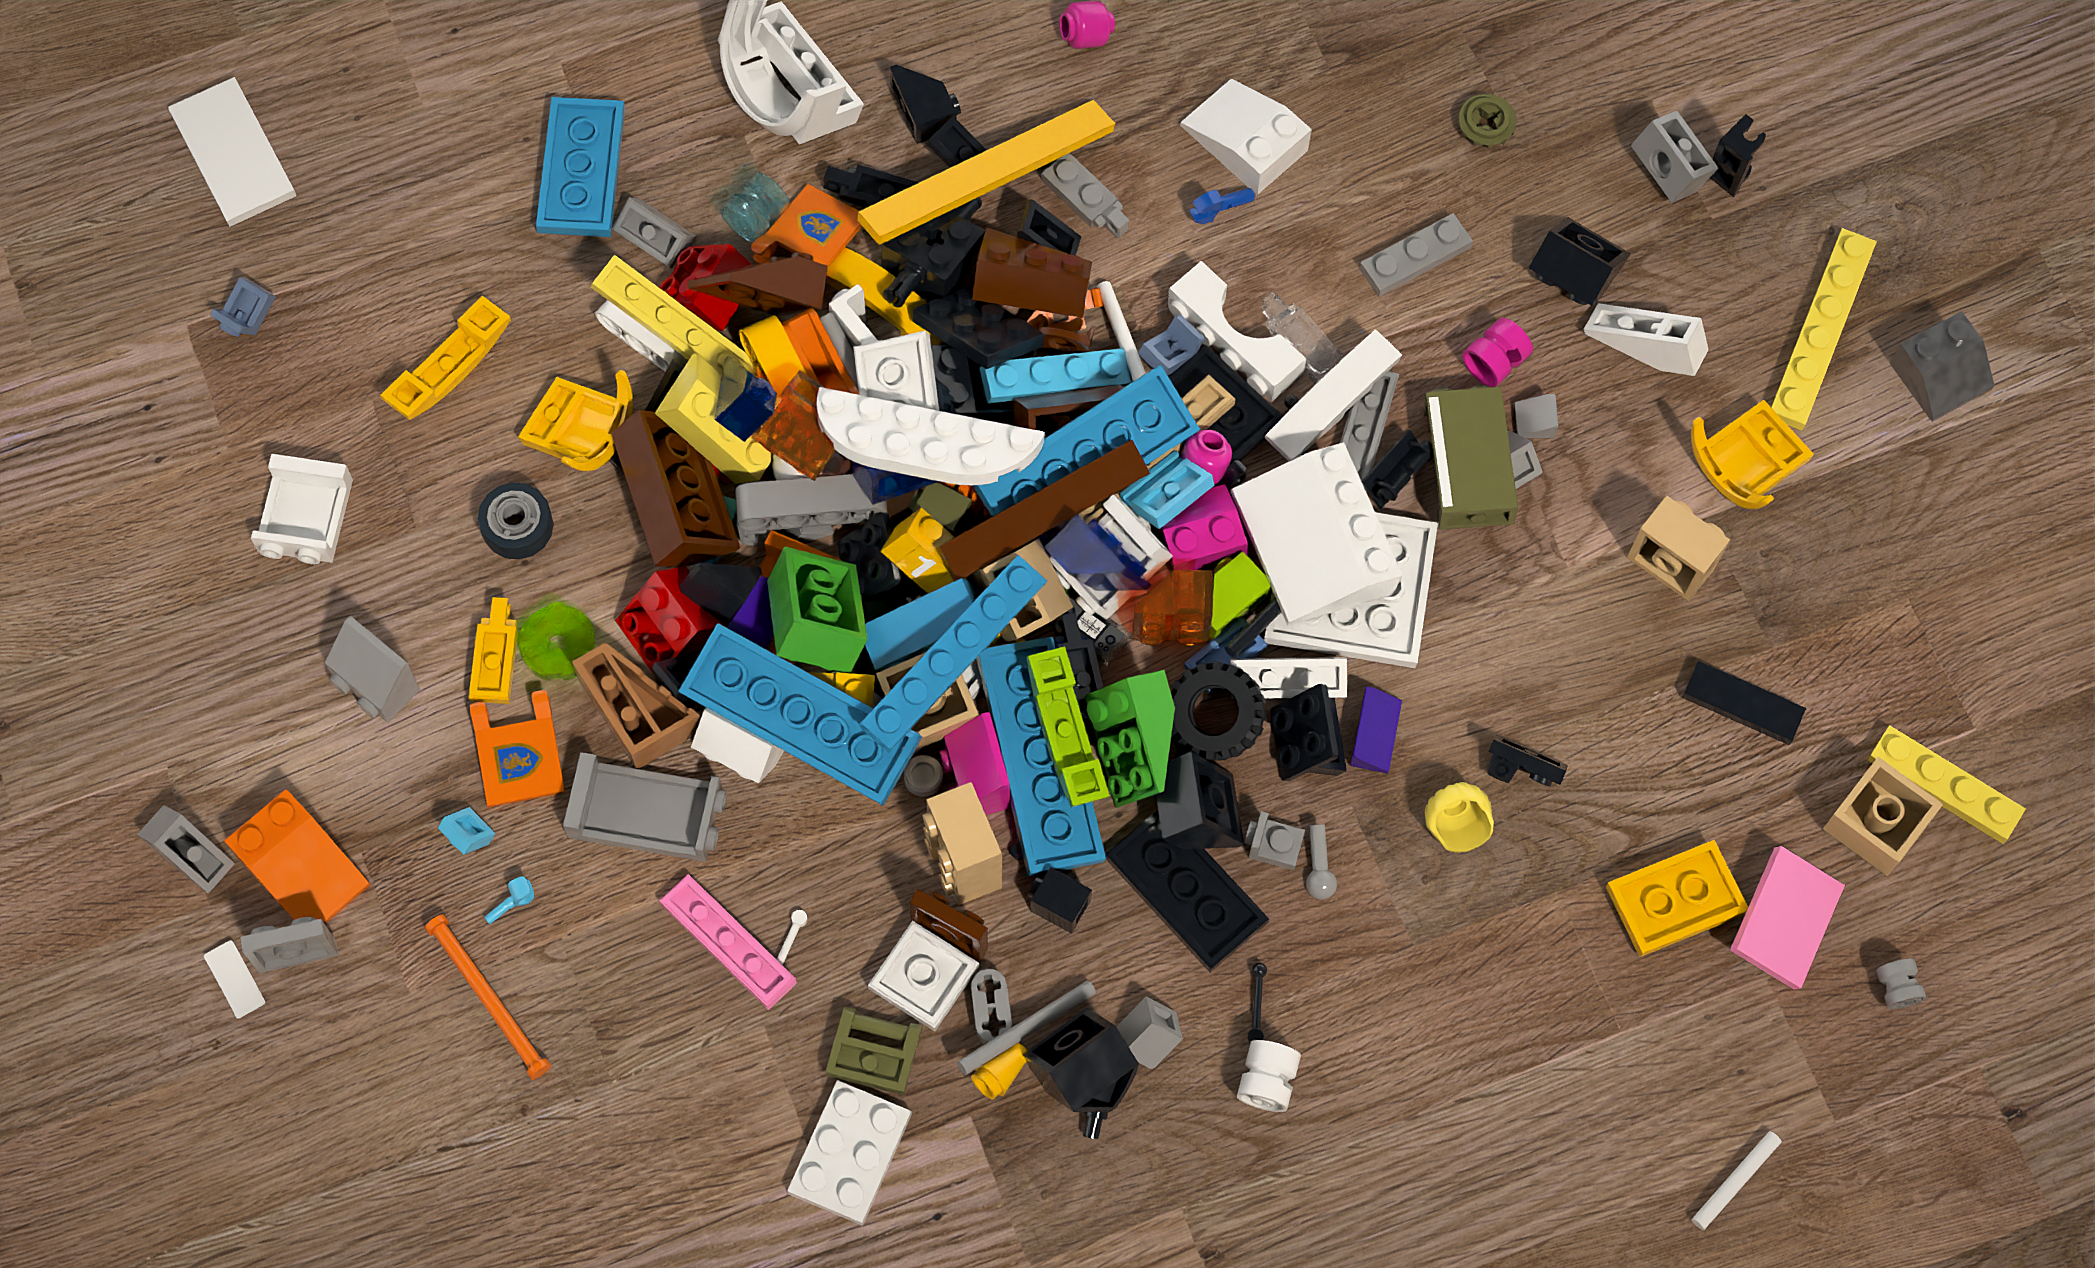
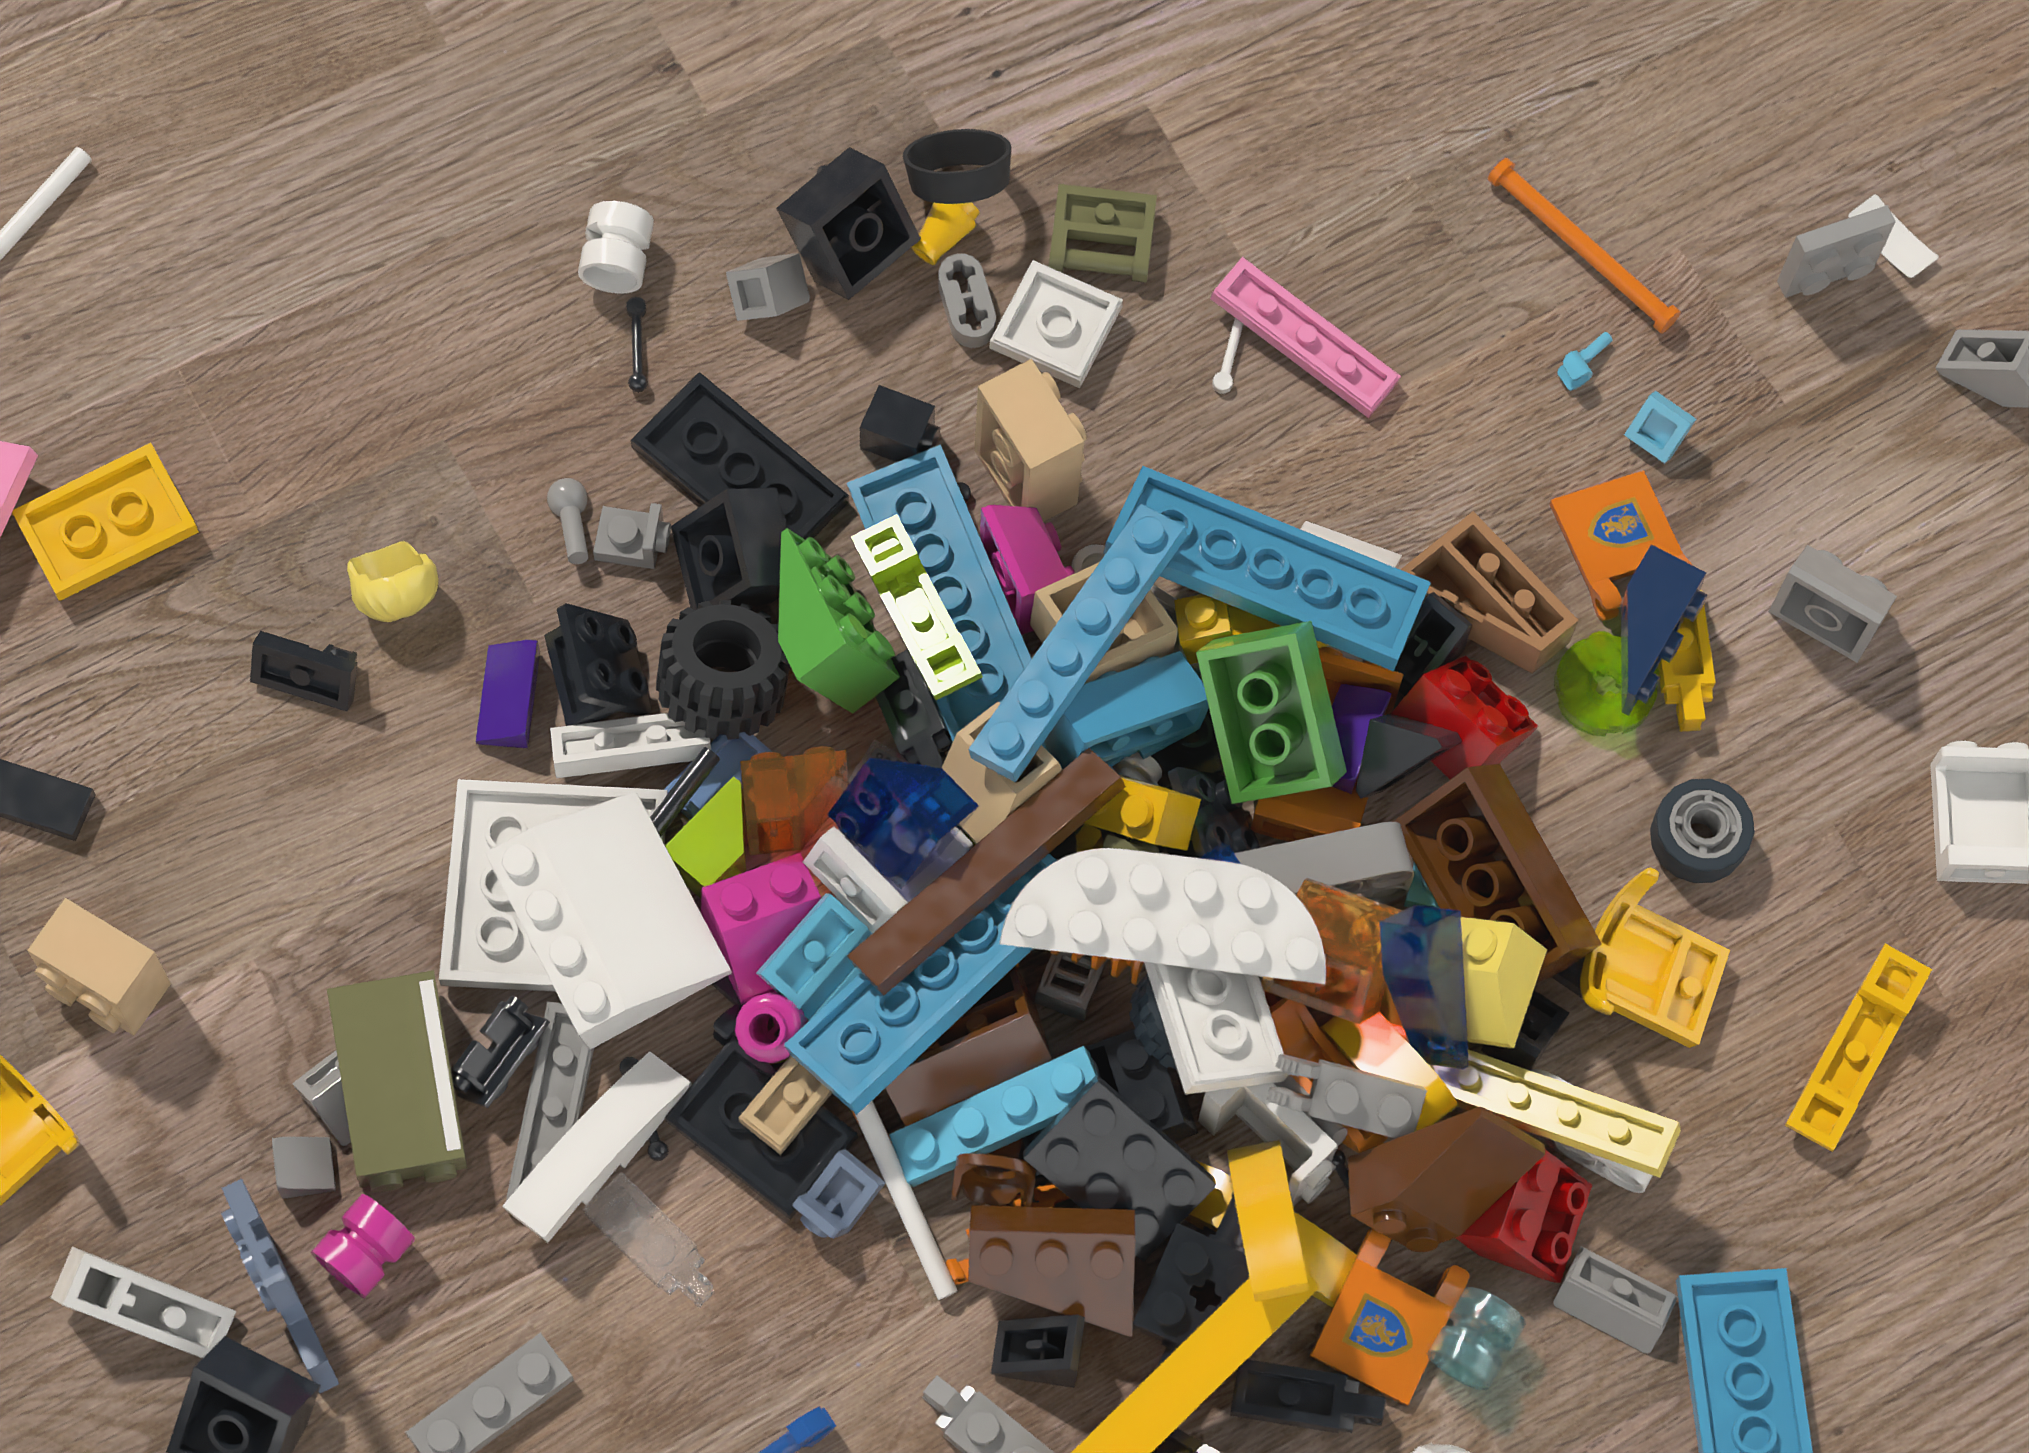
camera: 170 degrees right, 0 degrees up
(296, 860) = (1859, 367): orange slope -> none
(512, 668) = (1652, 611): none -> dark blue slope
(644, 810) = (1435, 481): light grey panel -> none
(816, 326) = (1352, 1097): none -> light grey hinge
(849, 1152) = (1111, 122): white plate -> none
(886, 264) = (1267, 1221): none -> yellow slope
(961, 930) = (1011, 345): reddish brown plate -> none
(986, 1142) = (953, 149): none -> black tyre
(1026, 1027) = (919, 272): light grey bar -> none
(1266, 363) = (698, 1192): white arch -> none
(1562, 323) = (273, 1280): none -> sand blue wing

